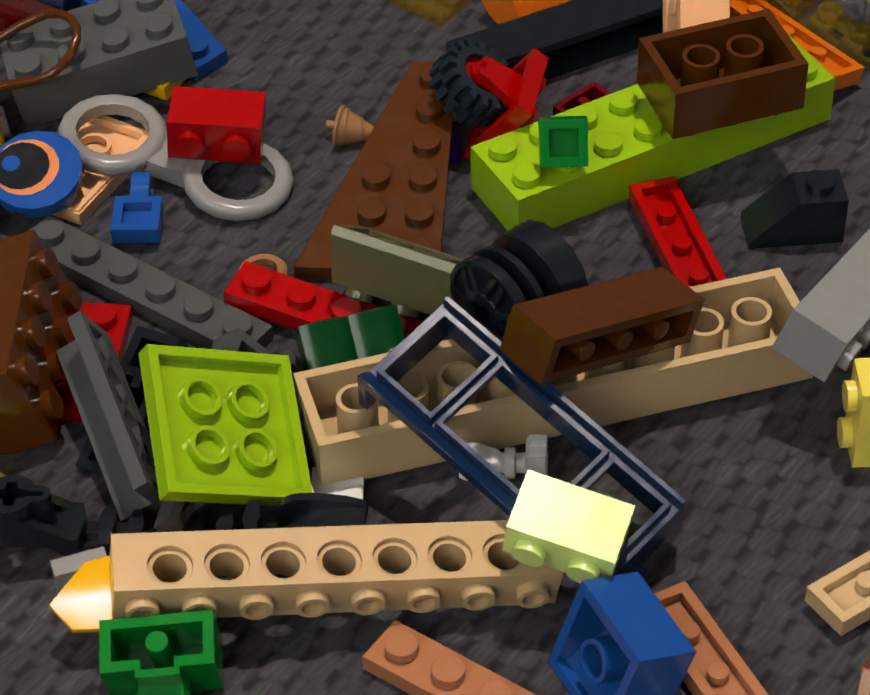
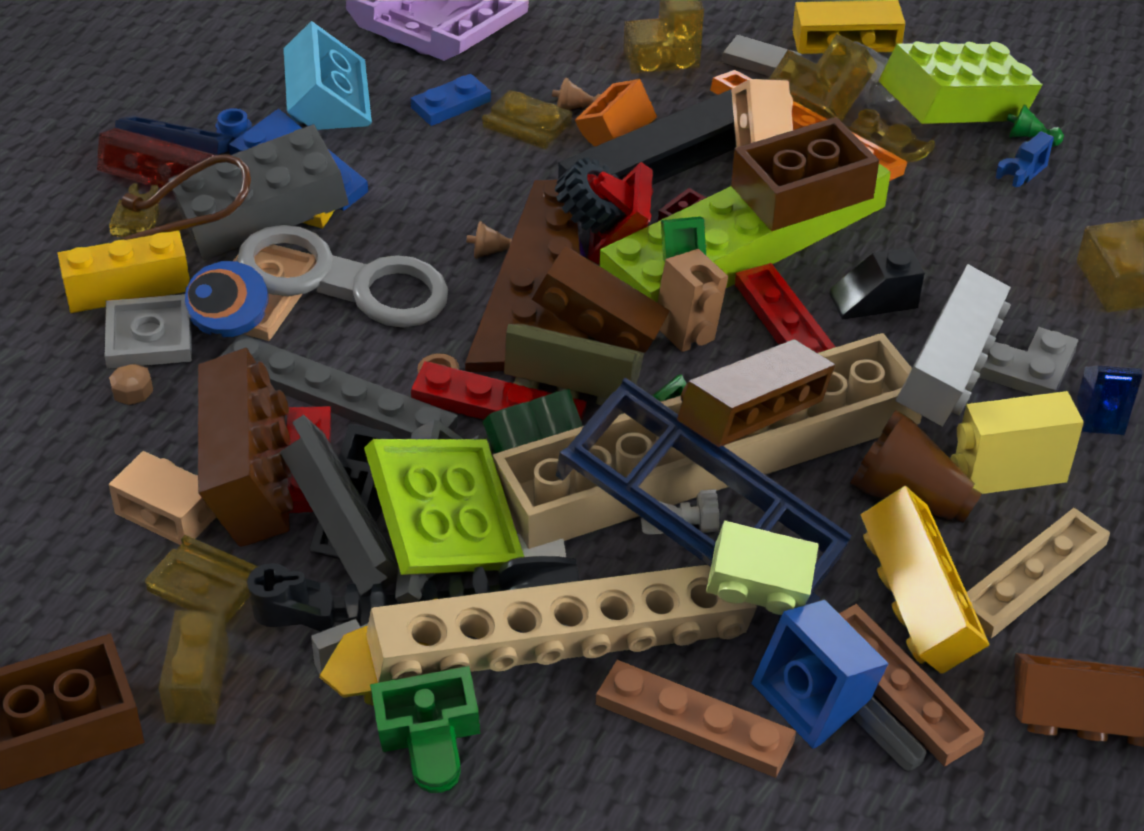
camera: 10 degrees left, 0 degrees up
(139, 215) = (320, 328): blue plate -> none
(216, 124) = (378, 245): red brick -> none
(448, 202) = (599, 303): none -> reddish brown brick
(516, 268) = (675, 352): black wheel -> none
(570, 207) = (694, 294): none -> medium nougat brick
(769, 561) = (923, 581): none -> yellow brick
(787, 434) = (912, 459): none -> reddish brown cone

